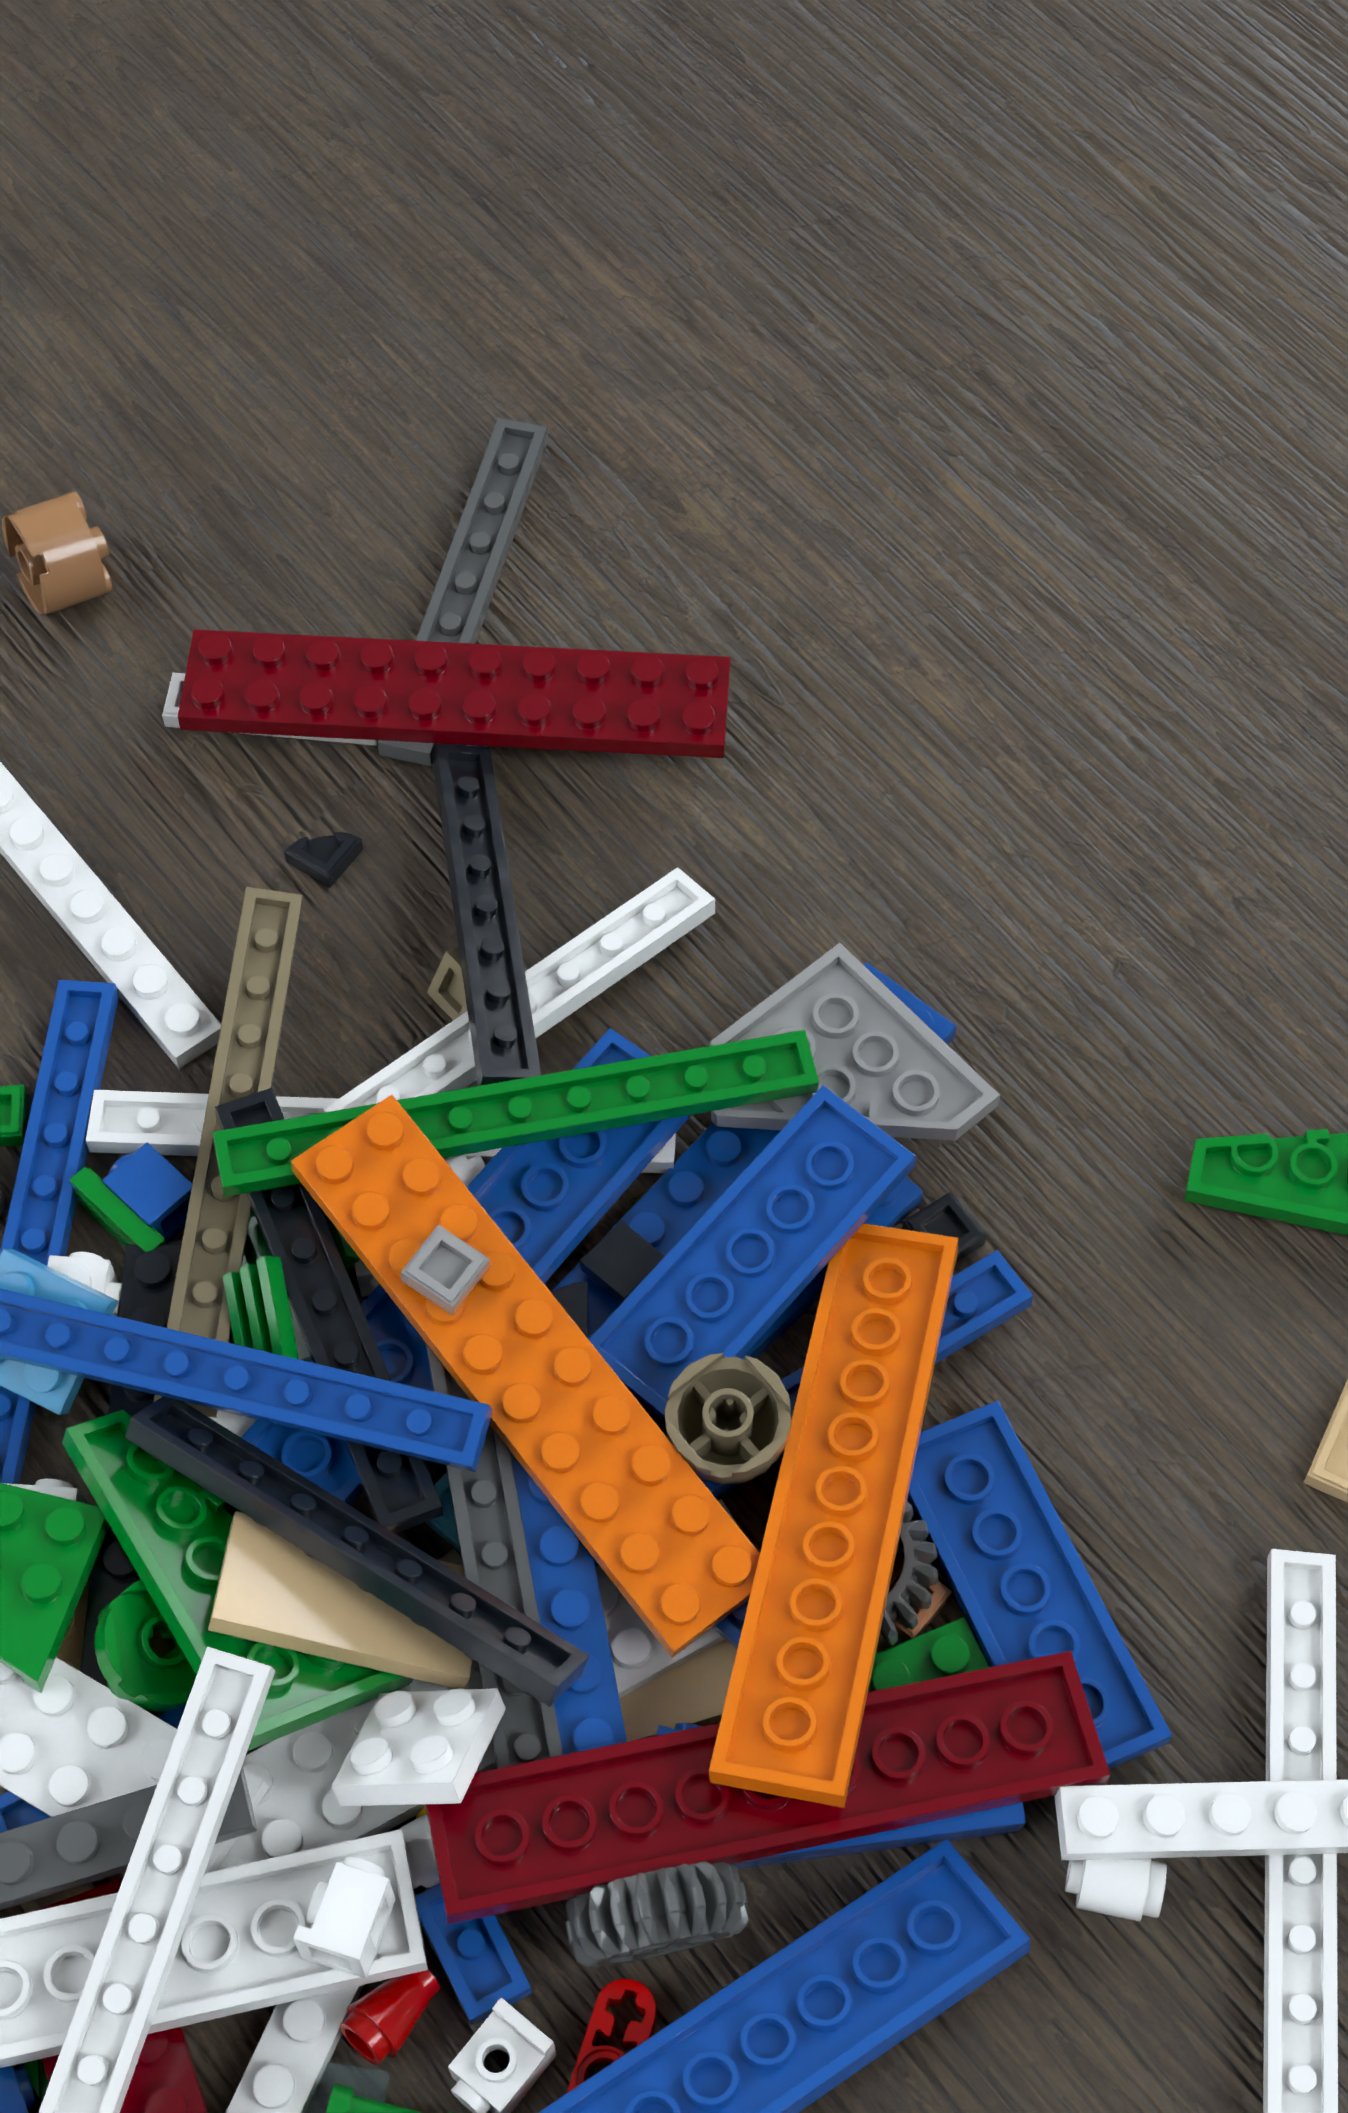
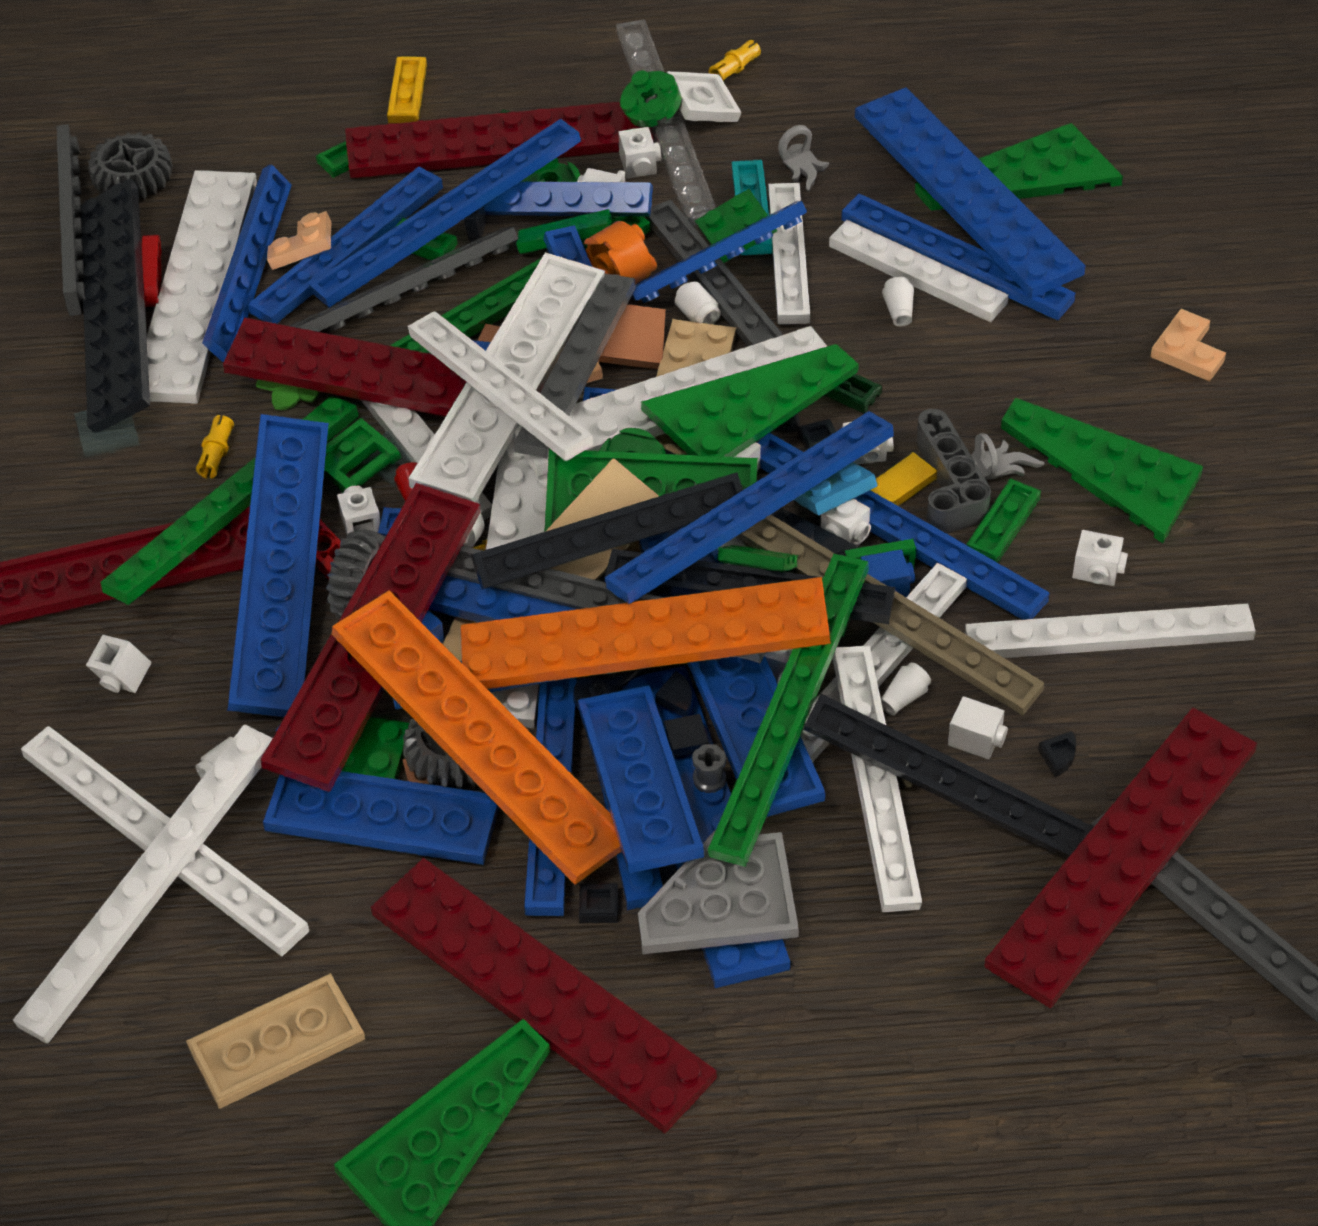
camera: 125 degrees right, 10 degrees down
(337, 1066) = (906, 687): none -> white cone
(347, 1918) = (443, 450): white brick -> none
(356, 949) = (977, 728): none -> white brick
(419, 1747) = (498, 512): white plate -> none
(445, 1269) = (710, 606): light grey tile -> none
(664, 1190) = (709, 770): none -> dark grey bush
(728, 1418) = (554, 706): dark tan cylinder -> none
(1121, 1232) = (556, 999): none -> dark red plate

